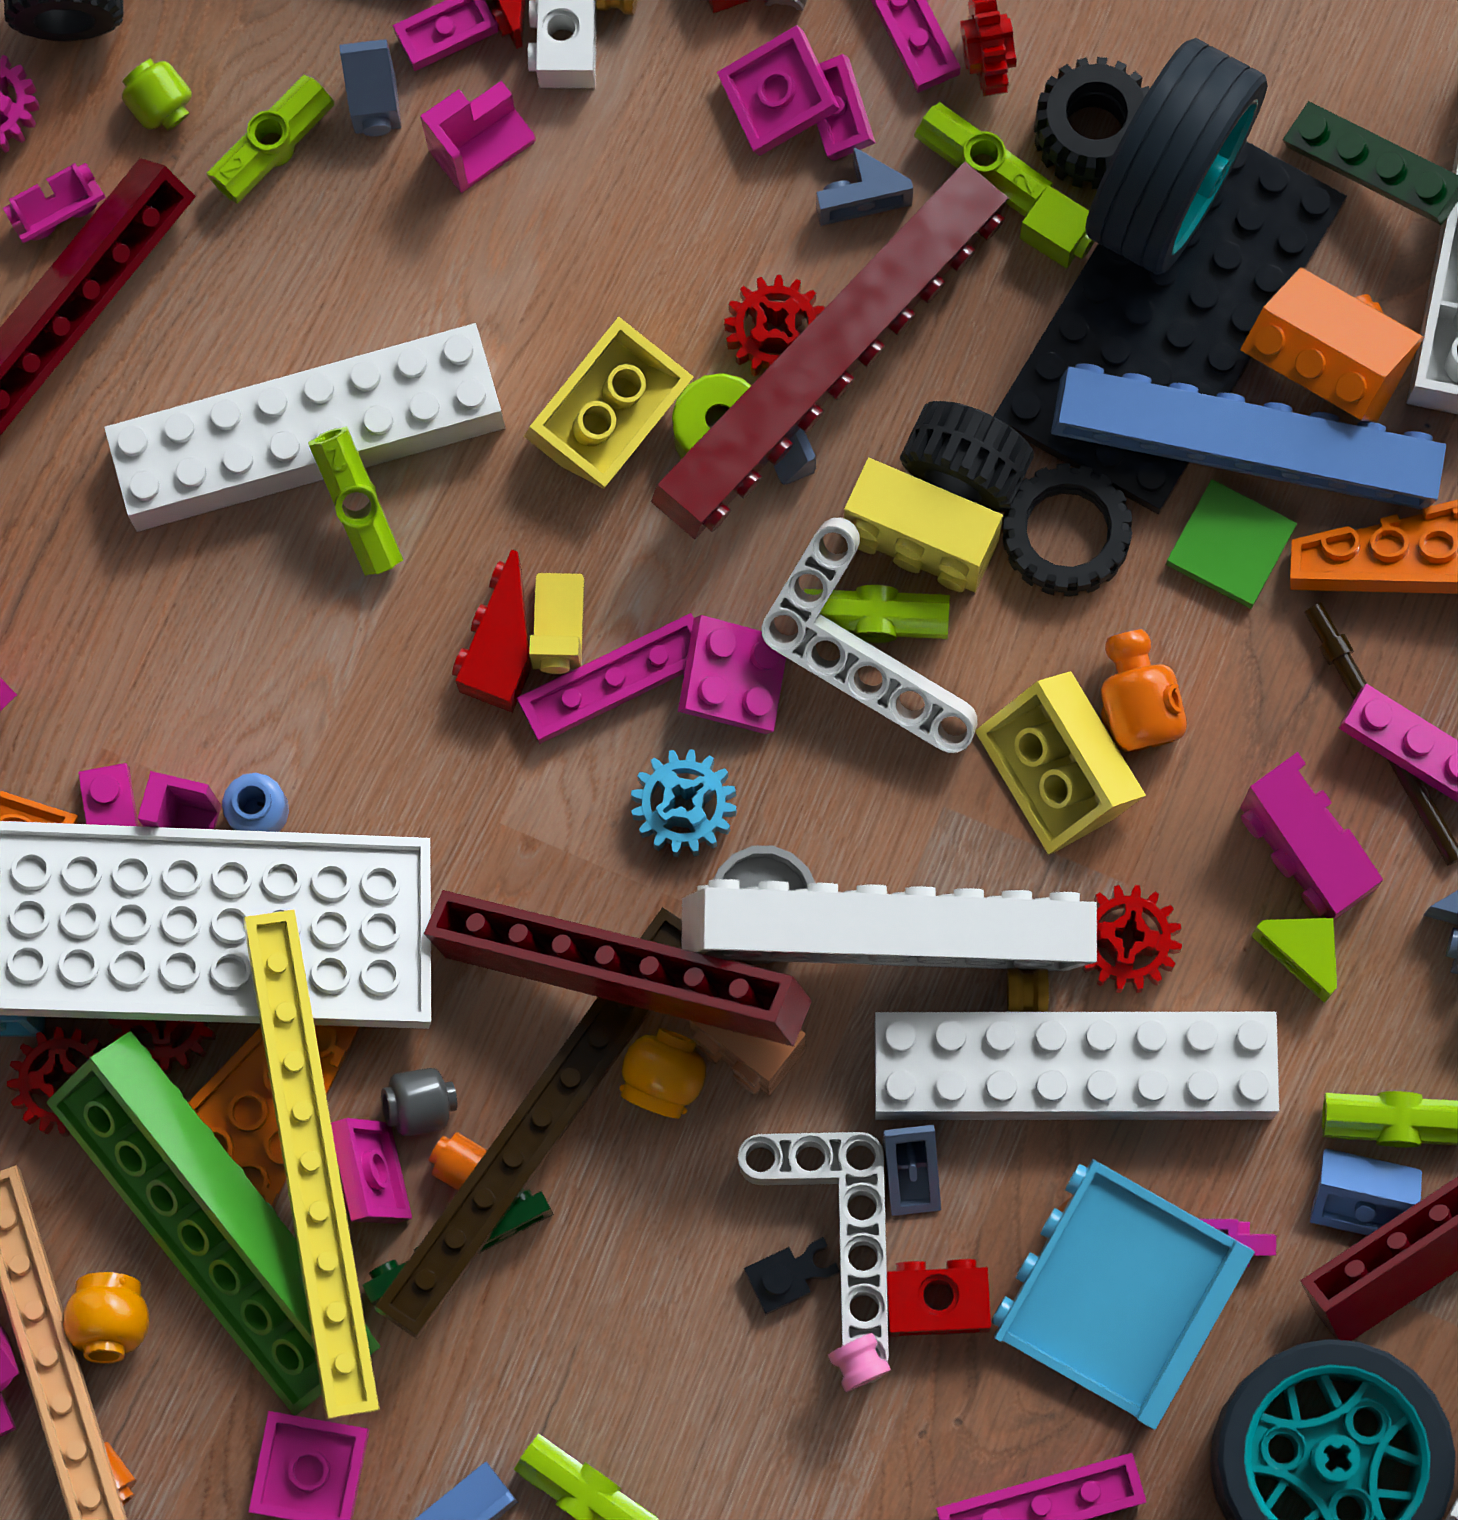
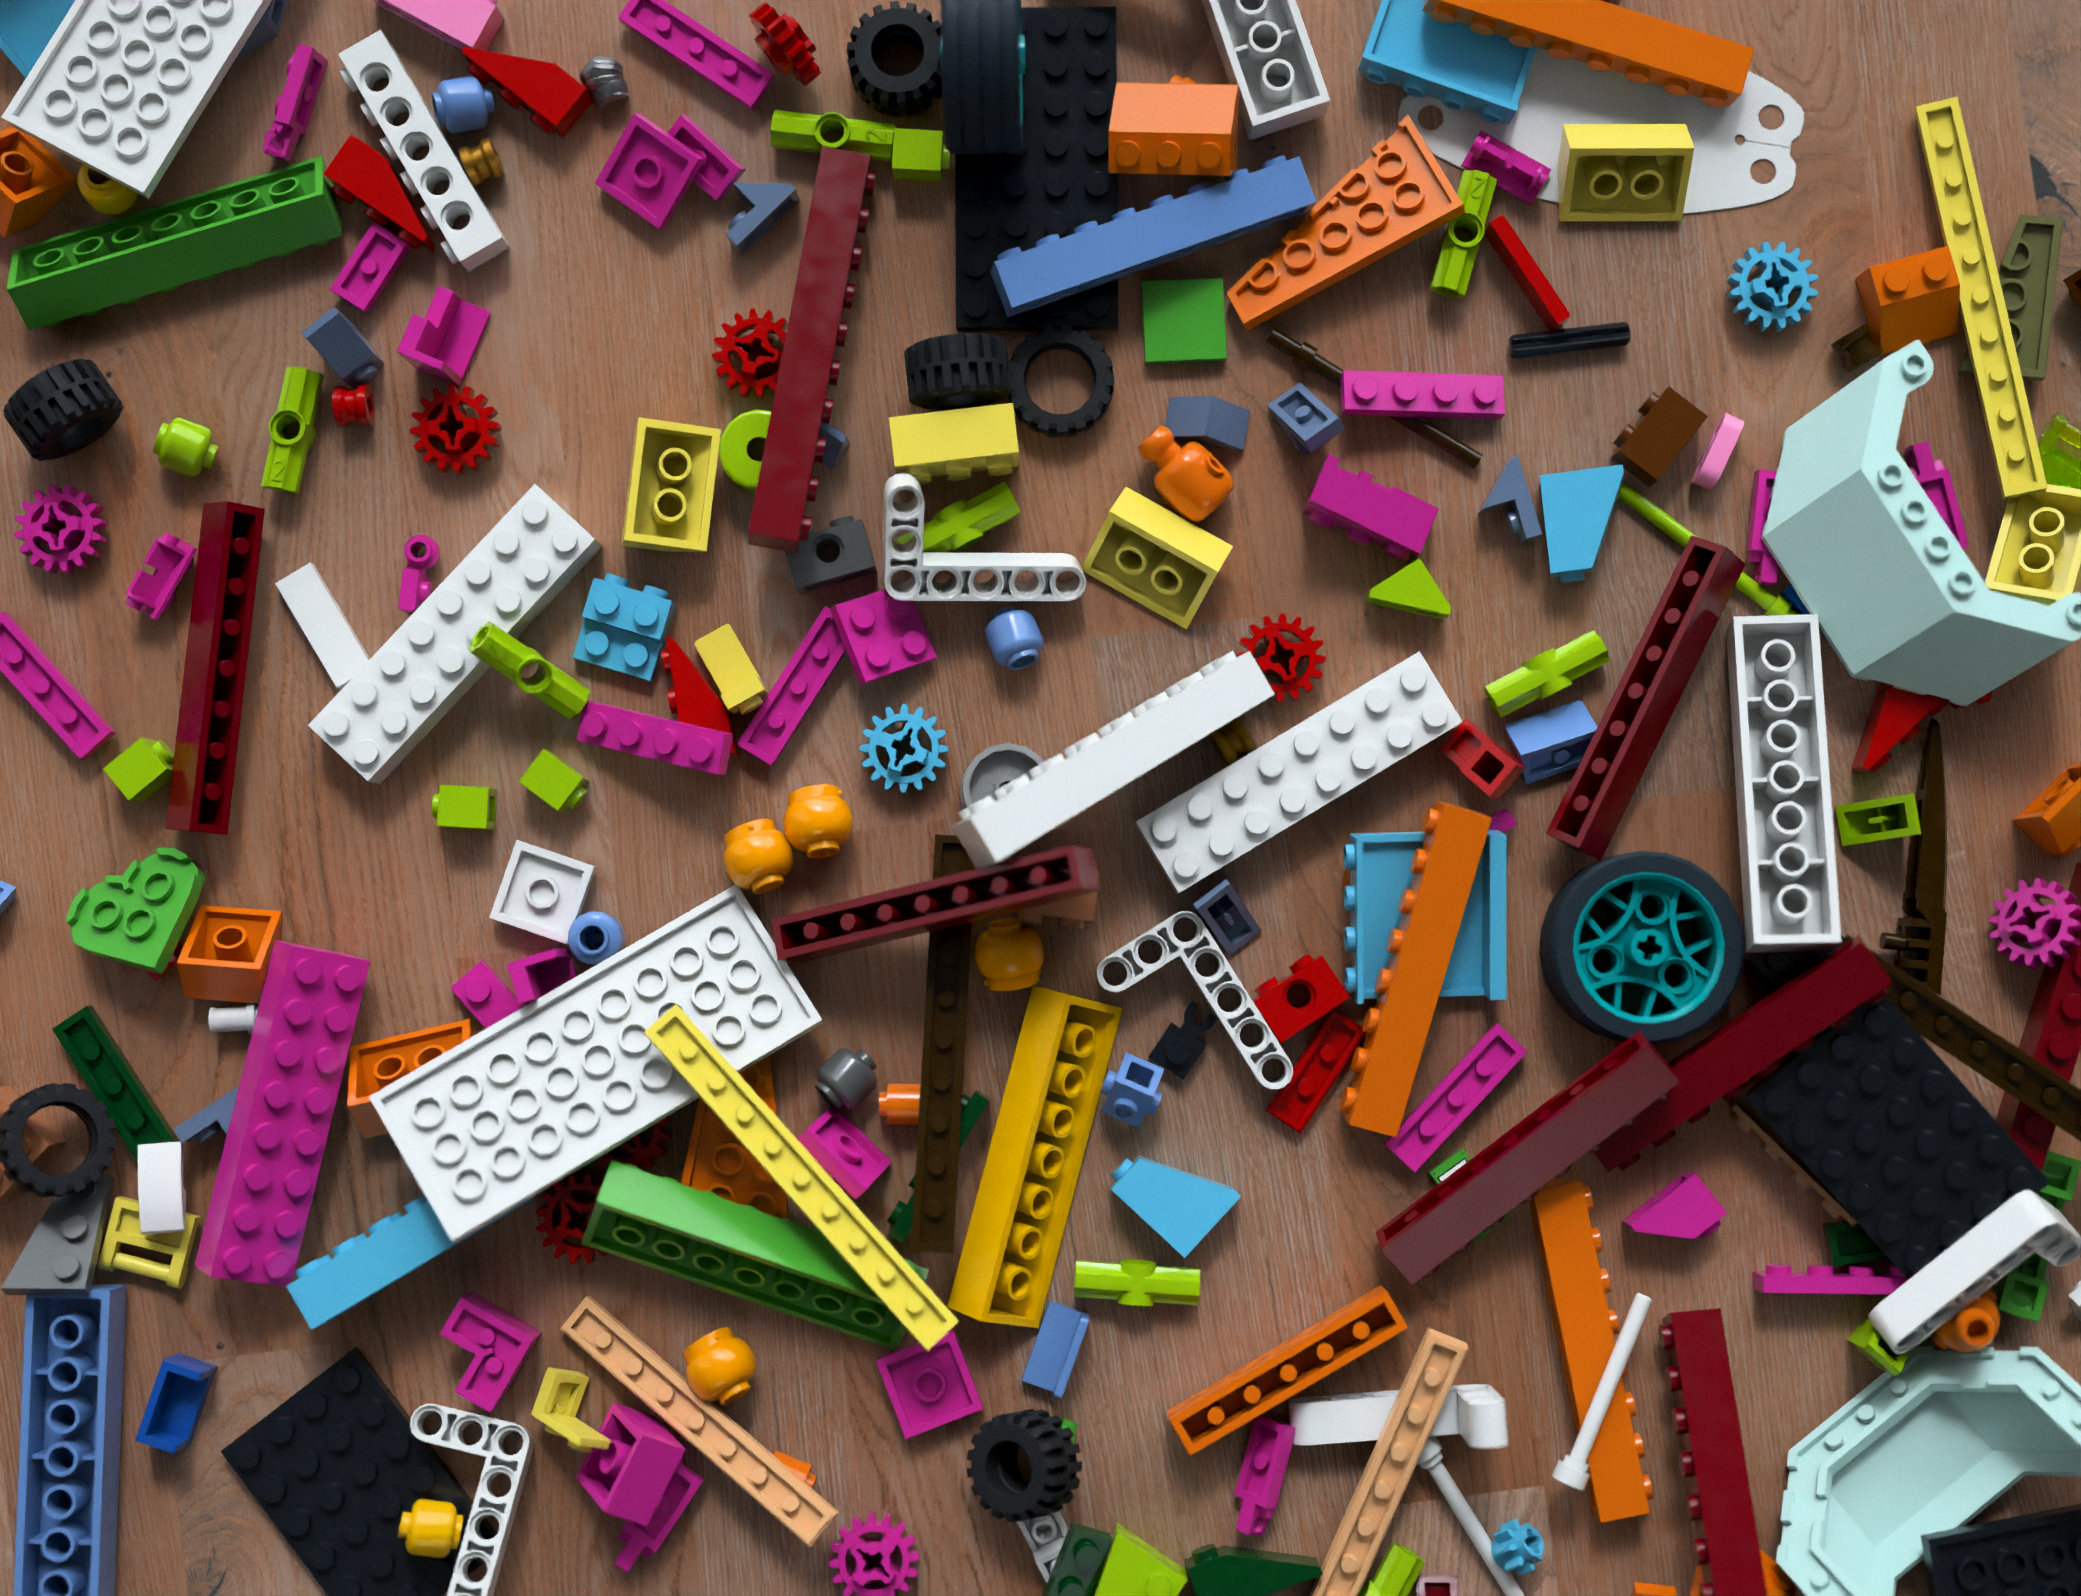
camera: 30 degrees left, 10 degrees up
(181, 340) = (323, 624): none -> white tile
(207, 601) = (465, 807): none -> lime brick
(230, 729) = (542, 891): none -> white plate
(297, 350) = (414, 582): none -> dark pink plate
(312, 629) = (555, 782): none -> lime brick
(345, 149) = (353, 405): none -> red wheel
(424, 210) = (472, 429): none -> red gear
(439, 641) = (655, 737): none -> dark pink plate
(468, 820) = (757, 856): none -> light orange piece
(477, 518) = (624, 627): none -> medium azure plate
(551, 820) = (817, 820): none -> light orange piece
(562, 1301) = (1034, 1158): none -> yellow slope
(677, 1432) = (1172, 1200): none -> medium azure slope
(697, 1296) = (1132, 1090): none -> medium blue brick
(745, 587) = (853, 562): none -> dark grey brick
(859, 1362) = (1274, 1080): bright pink wheel -> none
(864, 757) = (1014, 638): none -> medium blue head
(911, 1389) = (1316, 1070): none -> red tile
(1077, 1338) = (1415, 967): none -> orange brick
(1197, 658) = (1208, 421): none -> sand blue slope
(1278, 1165) = (1482, 759): none -> red brick
(1298, 713) = (1305, 419): none -> sand blue slope

